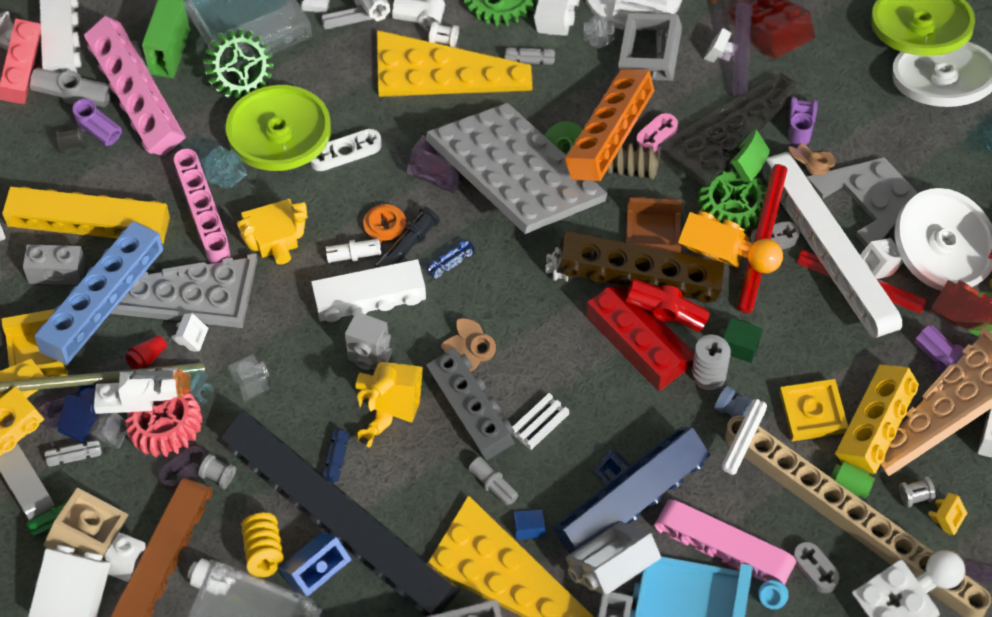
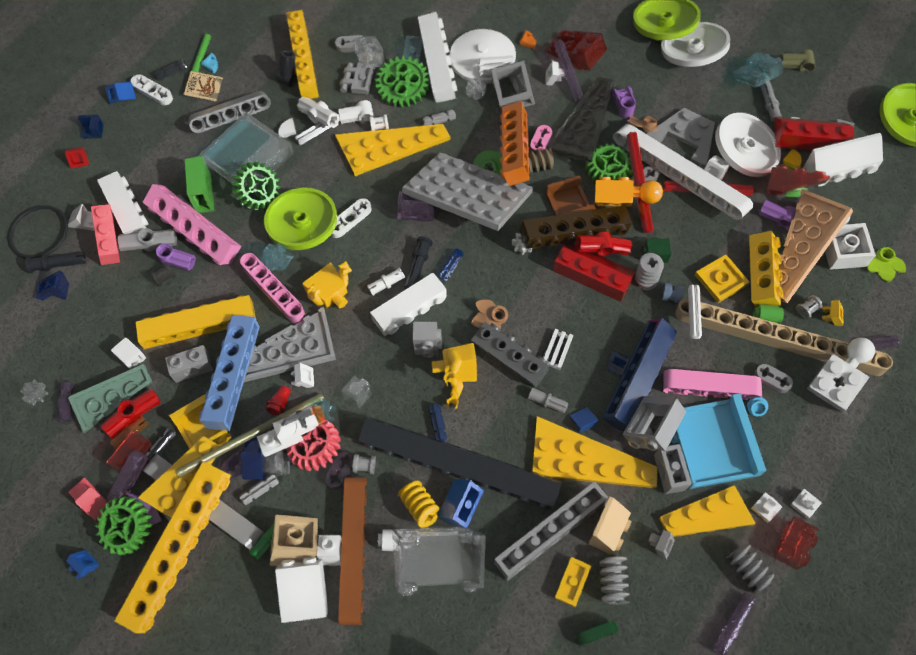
camera: 20 degrees left, 5 degrees up
(392, 215) = (397, 249): orange gear -> none
(751, 156) = (610, 133): bright green slope -> none

